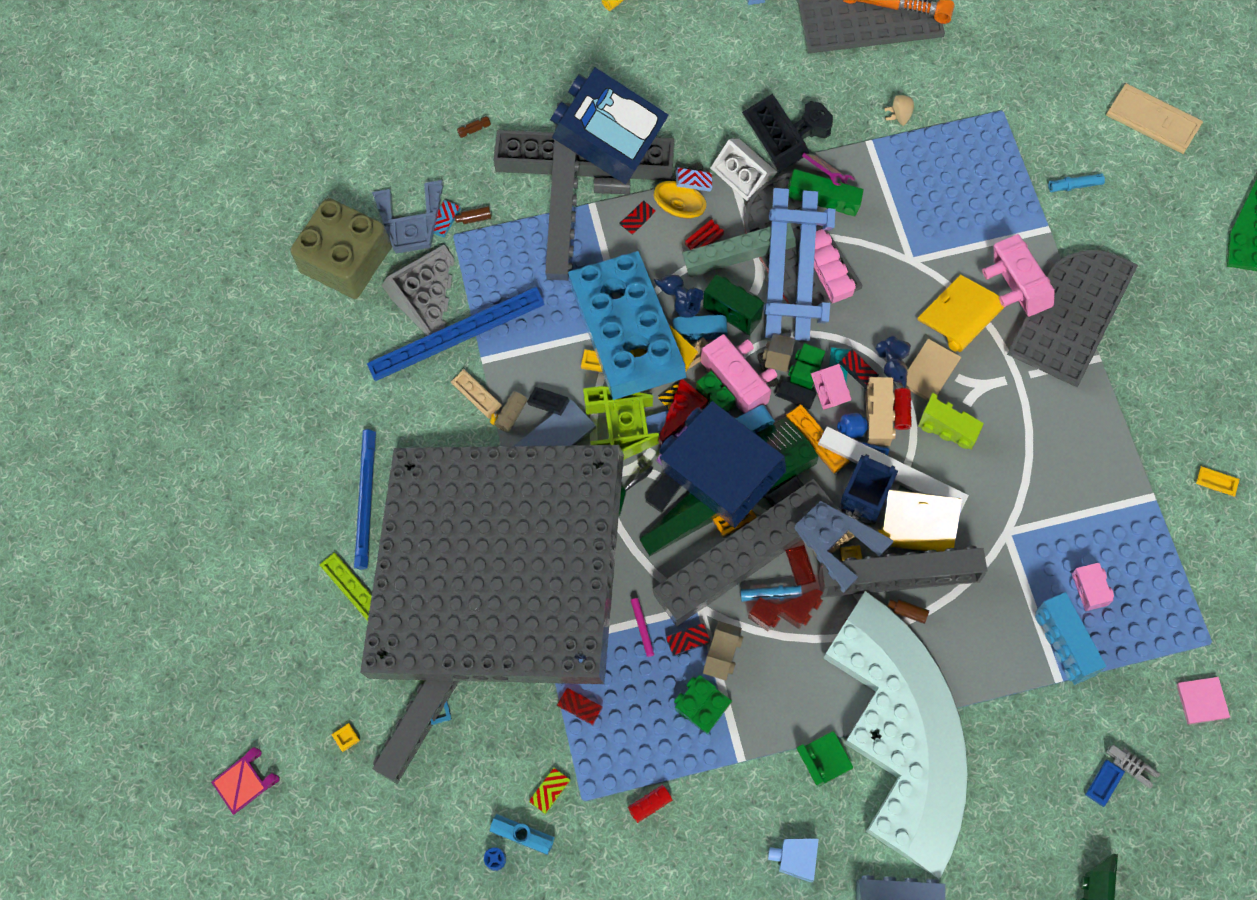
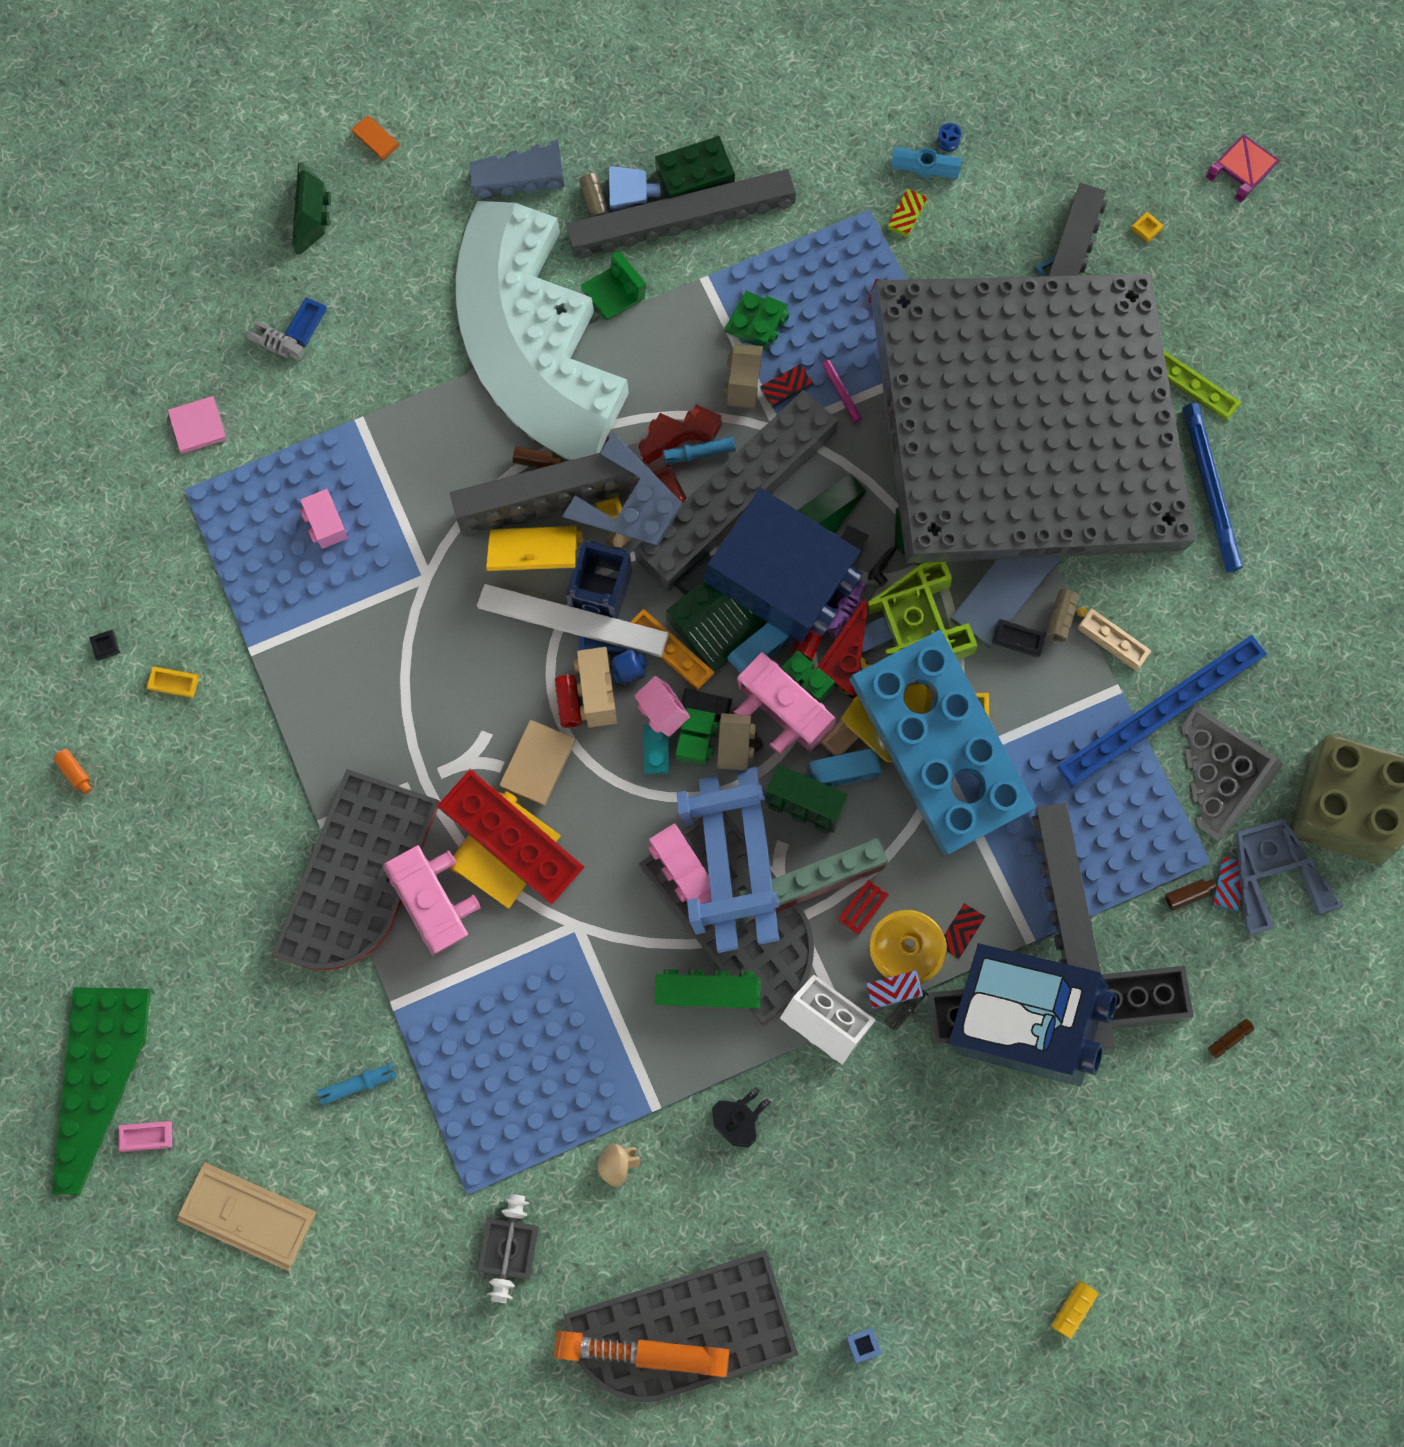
camera: 170 degrees right, 5 degrees up
(649, 803) = (796, 215): red axle -> none
(686, 301) = (870, 789): dark blue animal -> none
(734, 864) = (694, 168): none -> dark green brick
(753, 824) = (681, 213): none -> dark grey brick
(775, 132) = (792, 1081): black brick -> none
(828, 169) = (709, 1030): magenta flag -> none
(830, 857) = (593, 195): none -> dark tan axle
(857, 368) = (629, 744): black tile -> none
(894, 351) = (584, 772): dark blue animal -> none
(949, 423) = (506, 688): lime wedge -> none
(957, 313) = (510, 836): none -> red tile
(977, 74) = (508, 1248): none -> dark grey plate
(1069, 638) = (350, 447): dark azure brick -> none
(1227, 174) = (145, 1136): none -> bright pink tile

